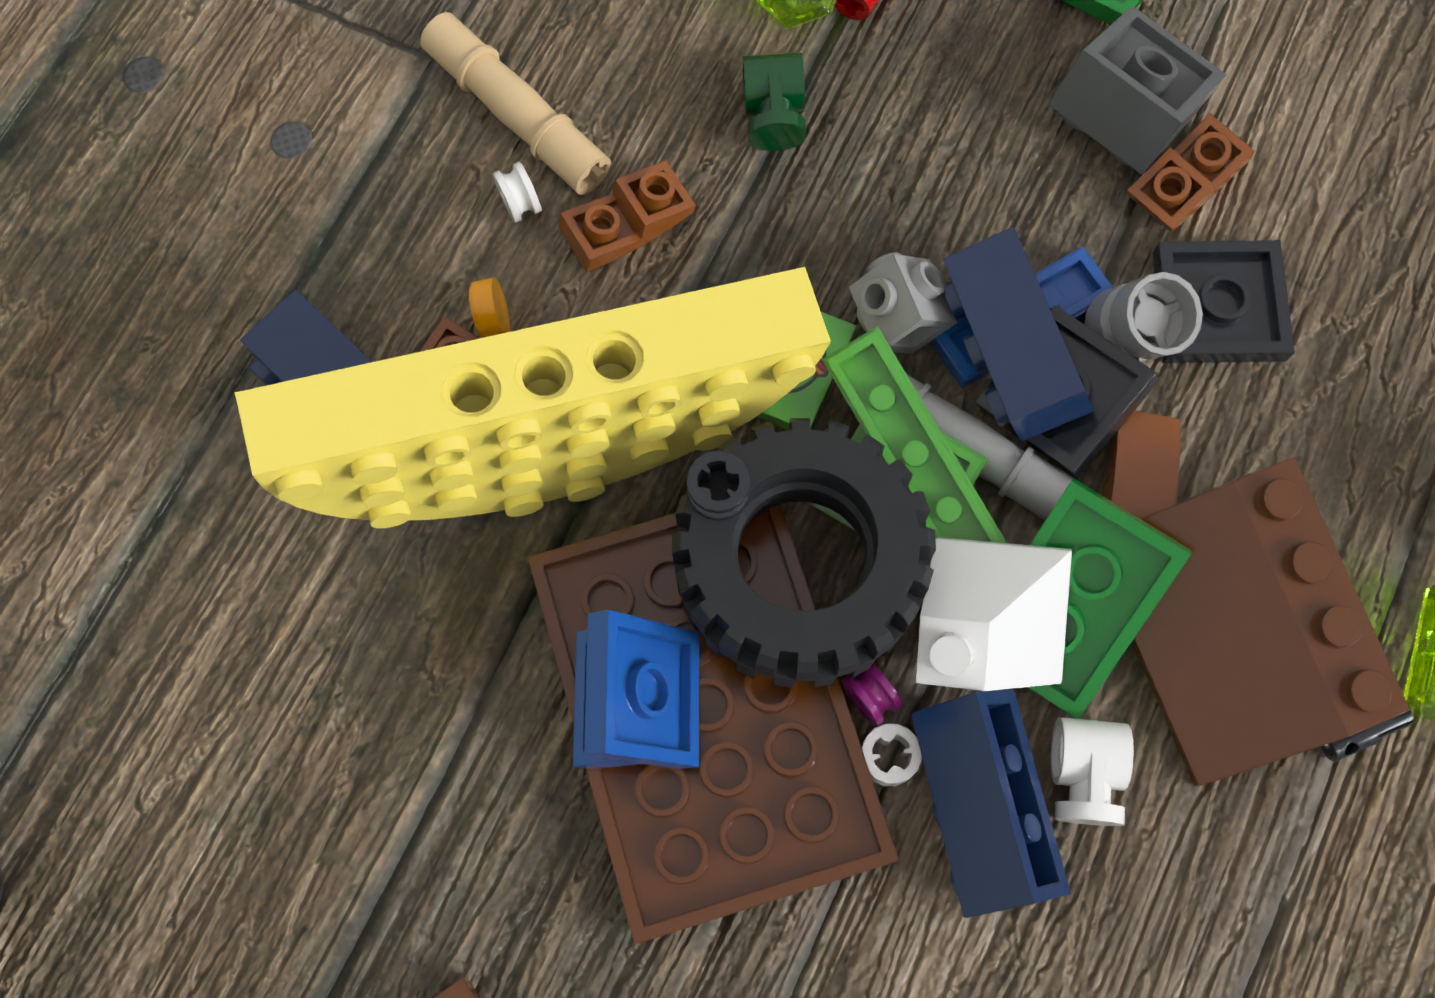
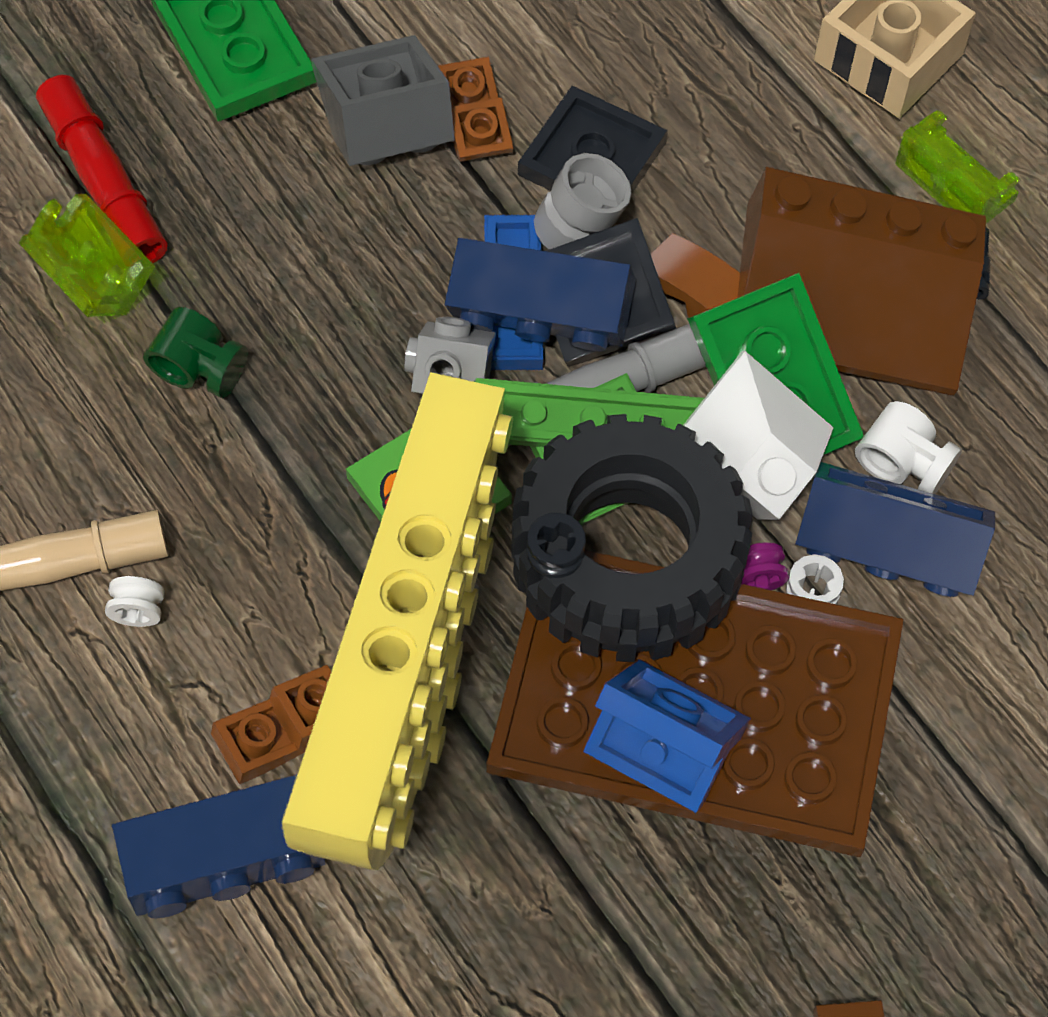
camera: 65 degrees left, 10 degrees down
(488, 307) = (233, 681): light orange tile -> none
(630, 217) = (217, 530): dark orange slope -> none

